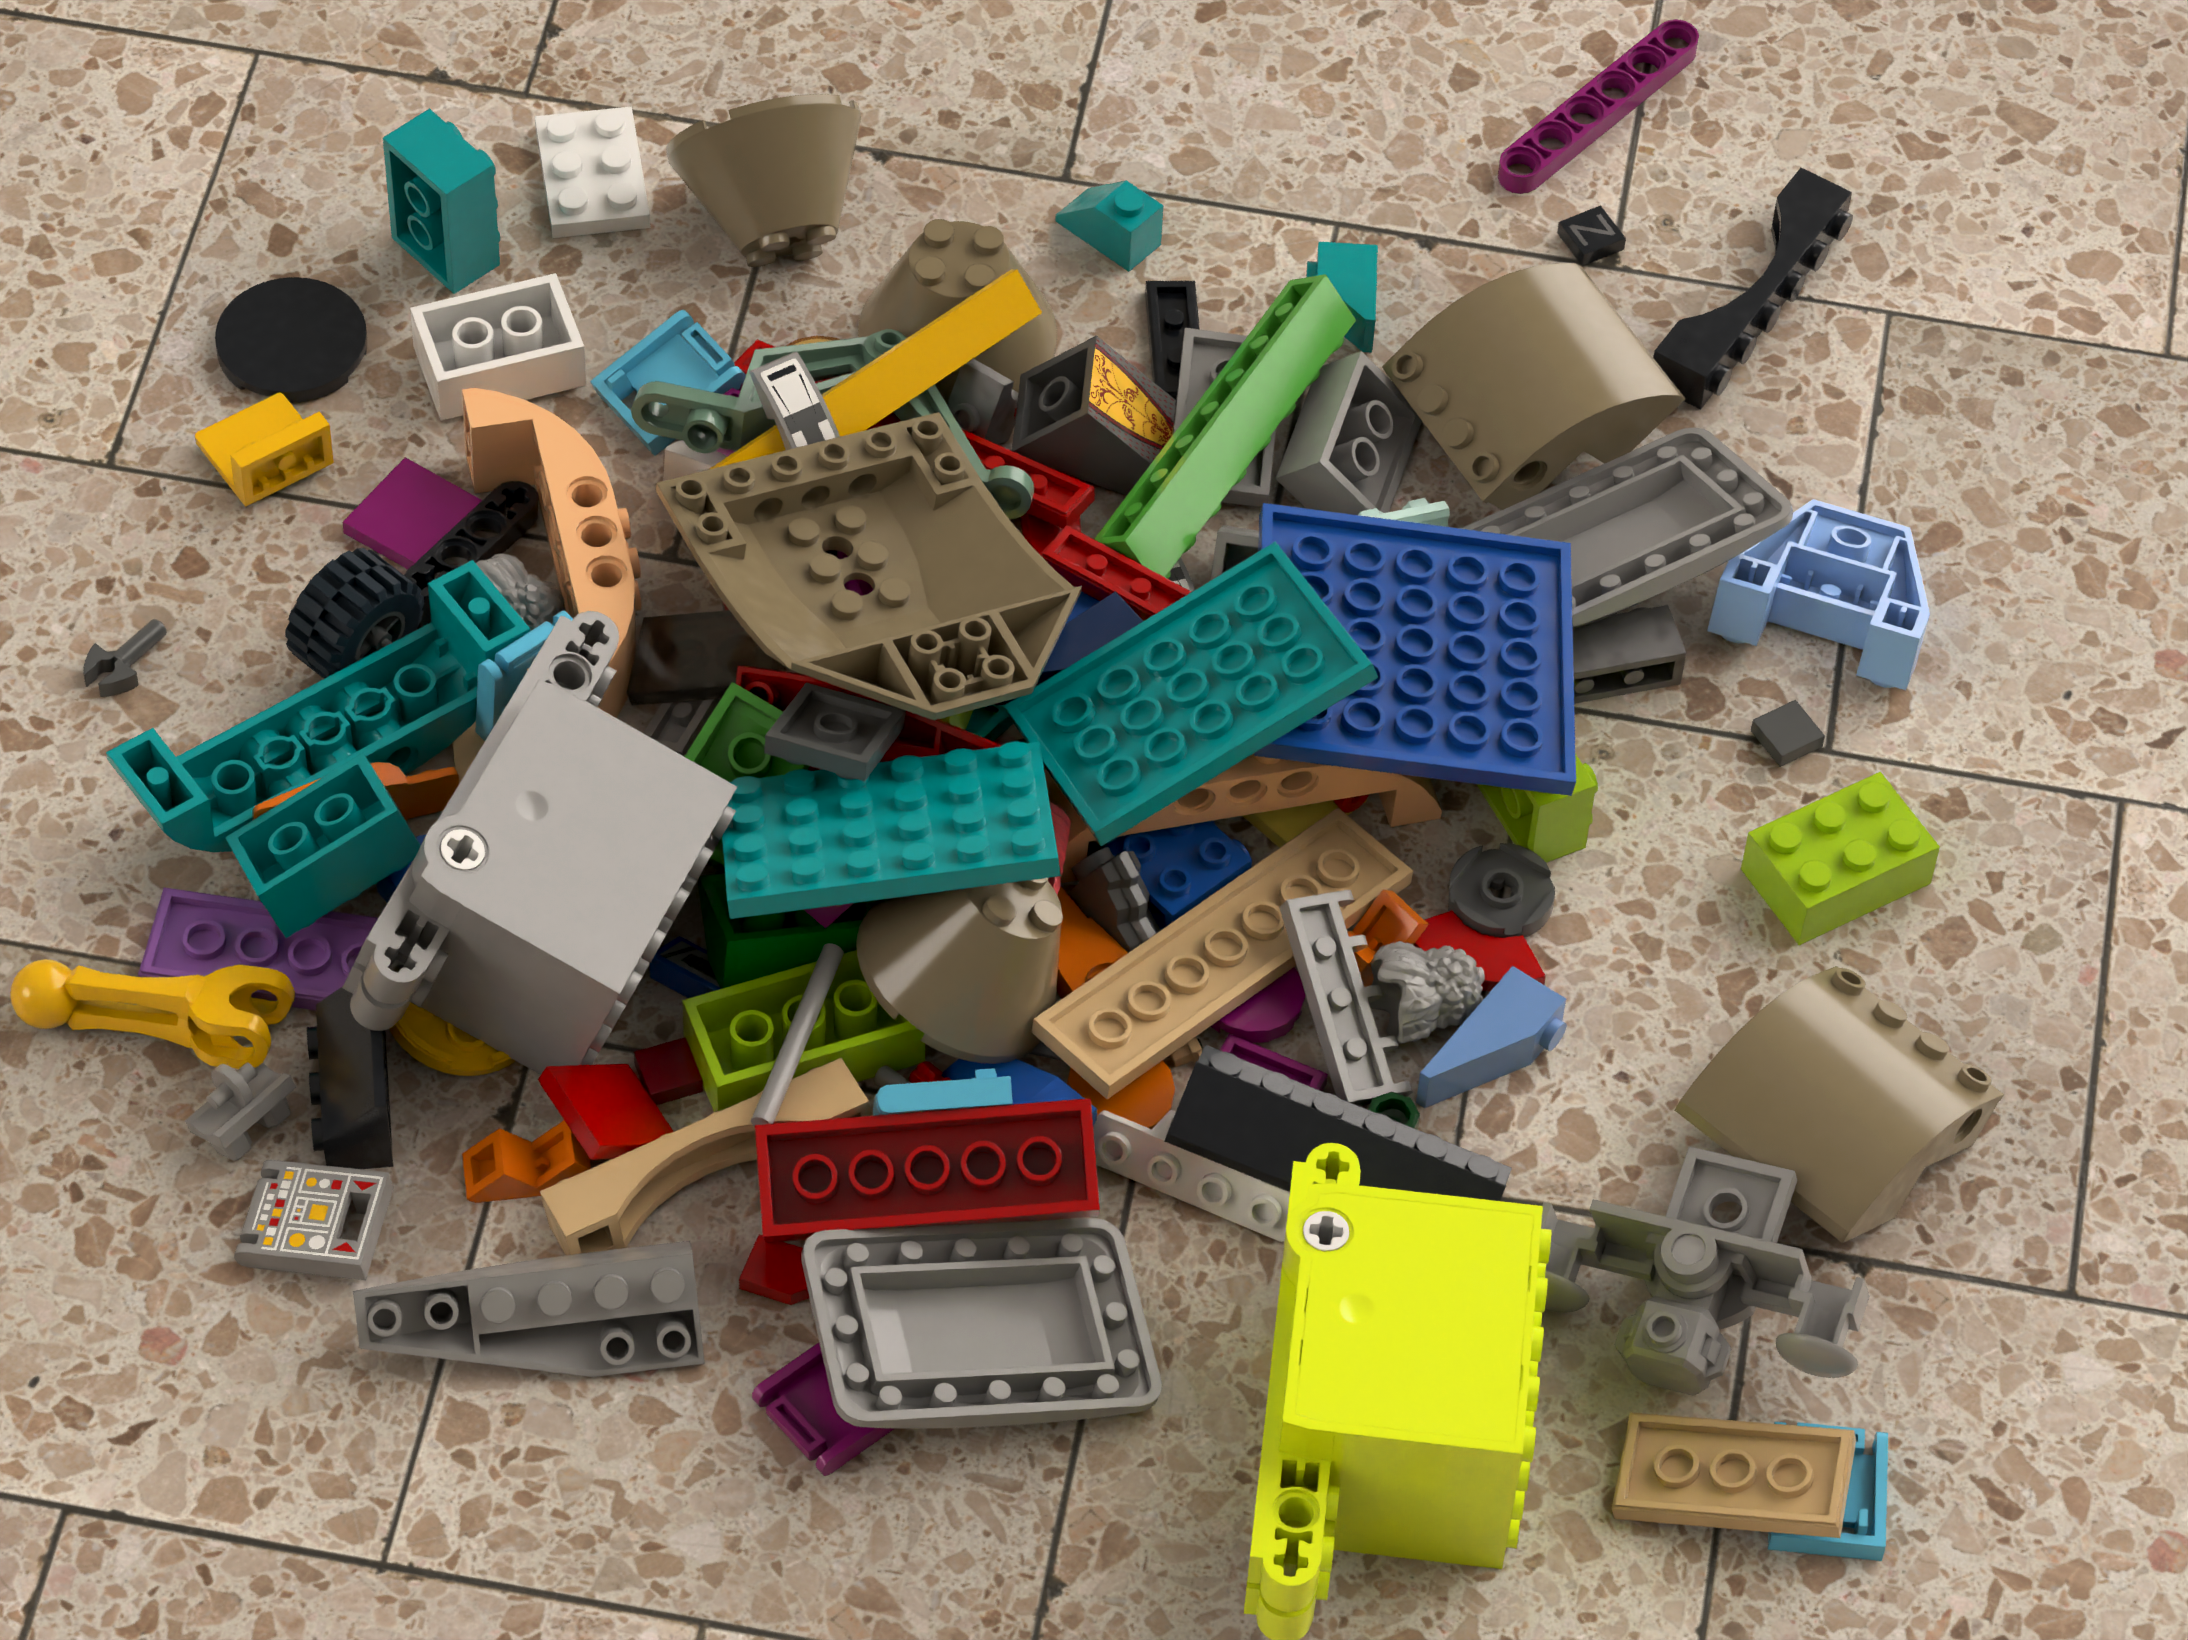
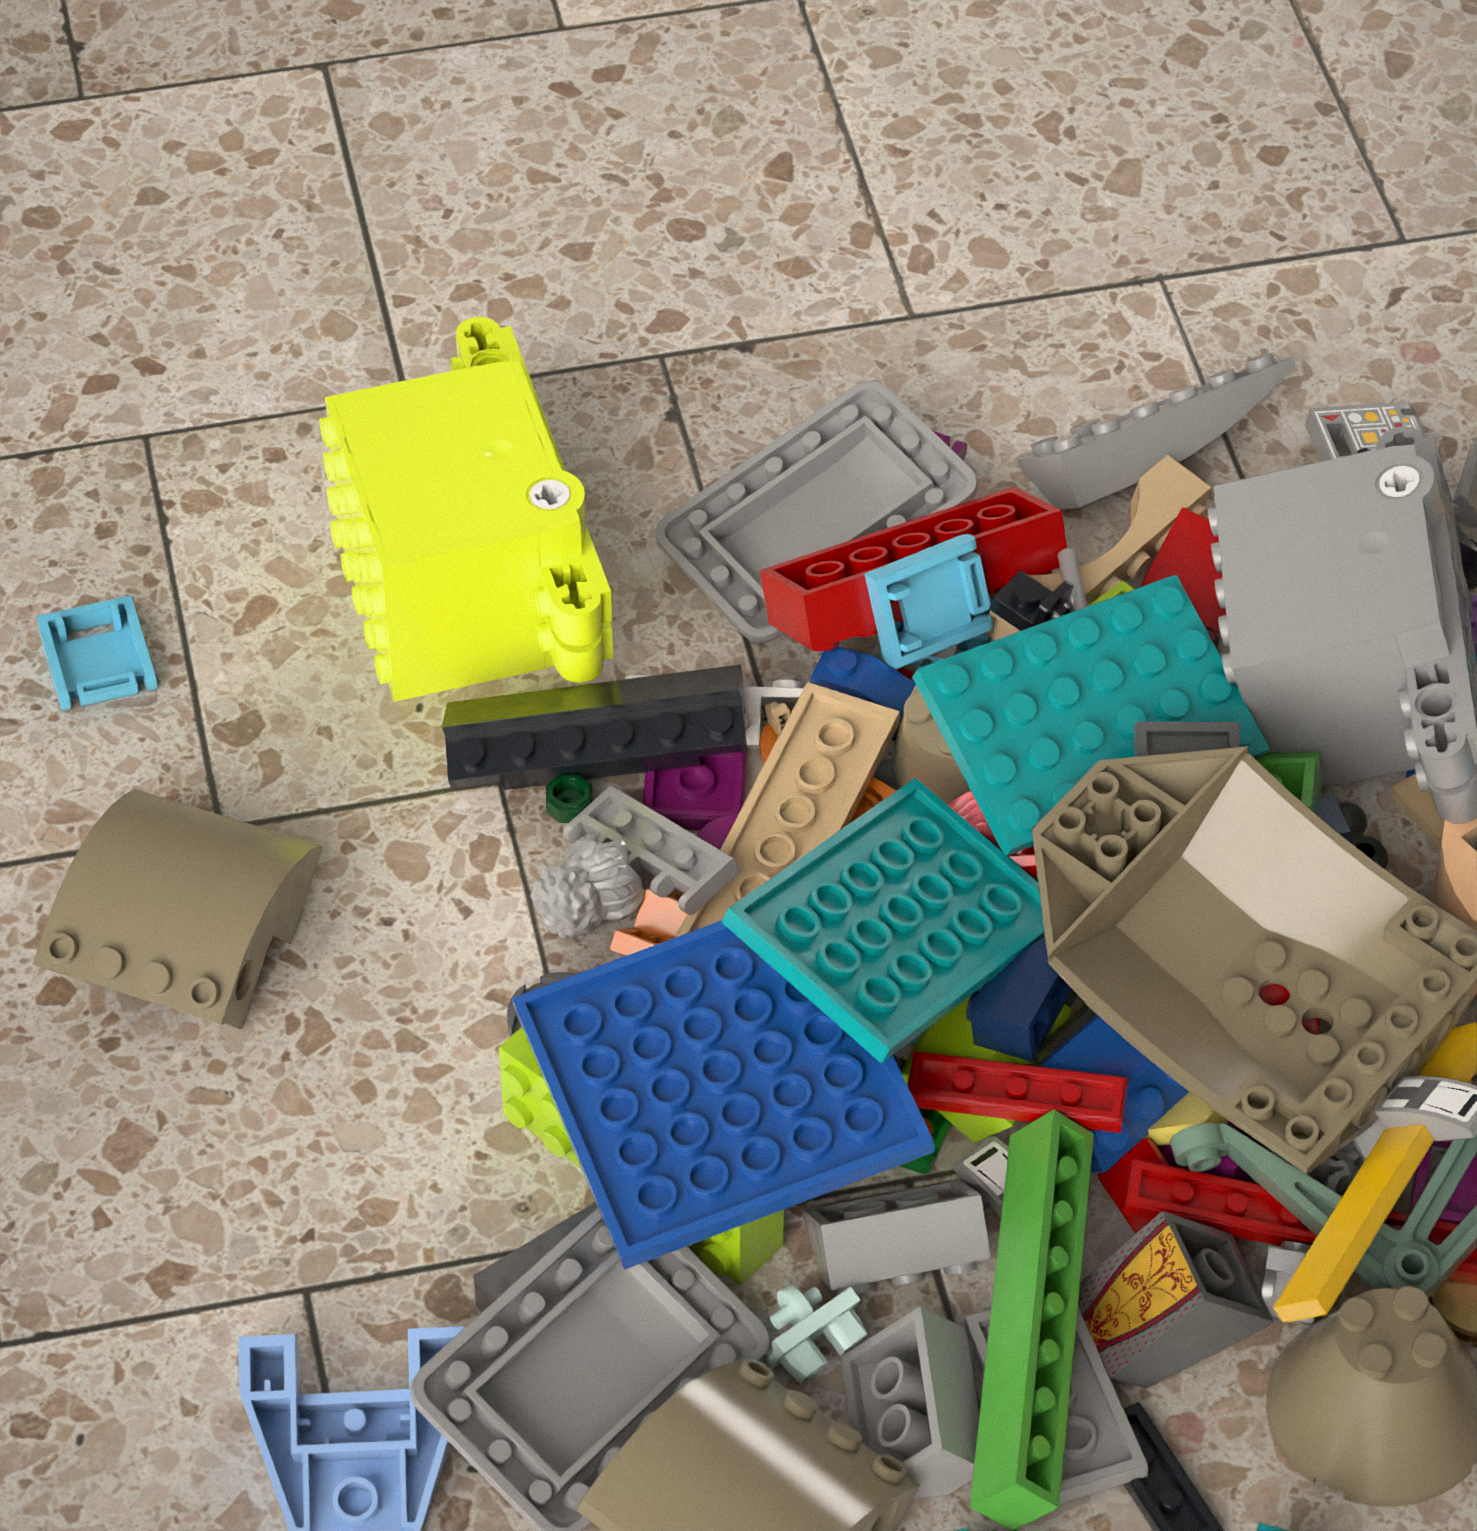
camera: 160 degrees right, 5 degrees down
(834, 1066) = (1028, 603): none -> black bracket
(1143, 1101) = (777, 716): none -> tan piece
(1491, 953) = (549, 954): red tile -> none
(1496, 1039) = (496, 897): medium blue slope -> none
(1706, 1275) = (251, 712): light grey piece -> none
(1734, 1475) = (174, 619): tan tile -> none
(1787, 733) = (349, 1279): dark grey tile -> none
(1839, 858) = (253, 1149): lime brick -> none

